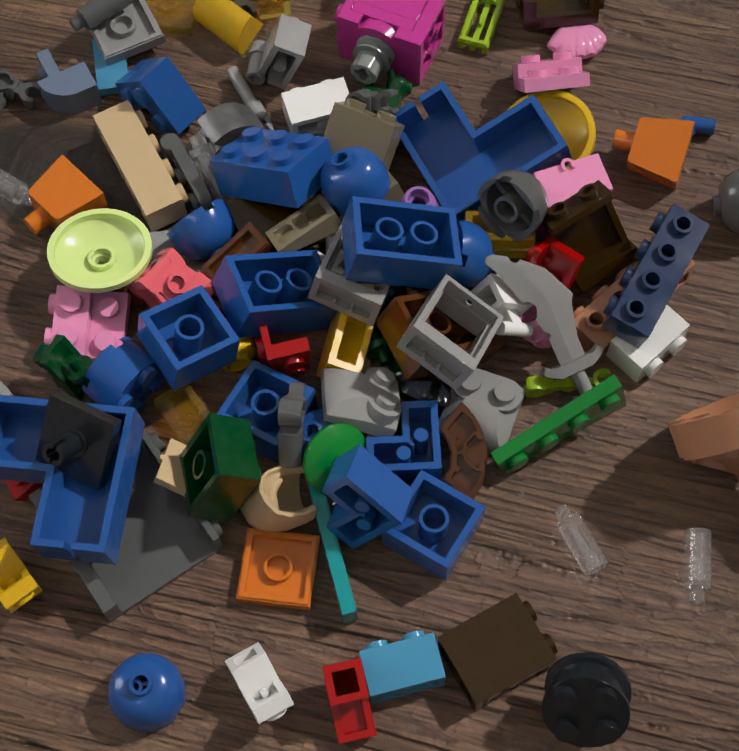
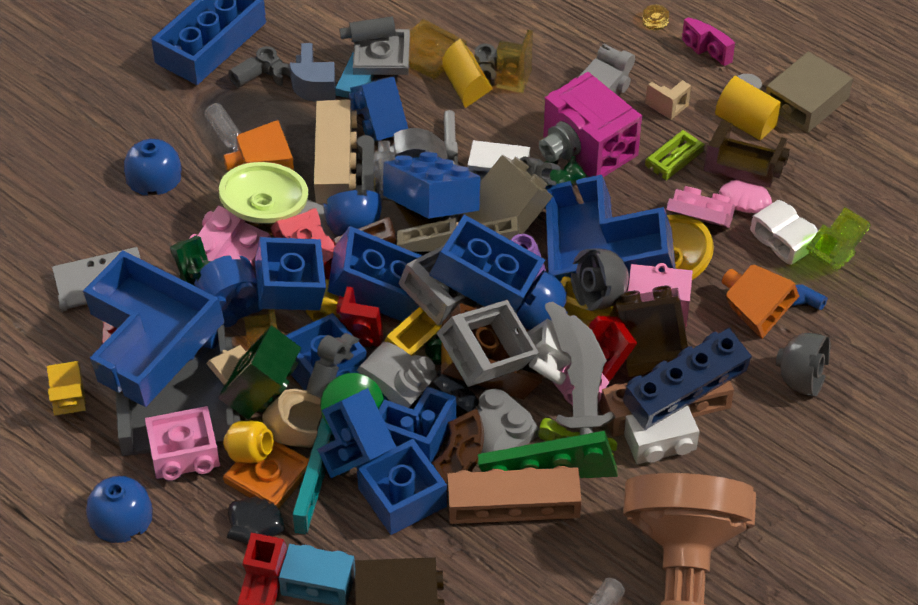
camera: 25 degrees right, 15 degrees down
(78, 439) = (165, 304): black tile -> none
(172, 581) = (182, 443): none -> bright pink plate
(246, 550) = (248, 441): none -> yellow head
(259, 684) = (203, 538): white brick -> none
(281, 52) = (489, 111): light grey hinge -> none
(297, 635) = (253, 516): none -> black animal
(353, 173) = (488, 208): blue cylinder -> none
(548, 479) = (514, 495): none -> nougat brick
(580, 541) = (514, 552): clear cylinder -> none
(637, 65) = (783, 231): none -> white brick
(696, 51) = (837, 244): none -> clear neon green brick

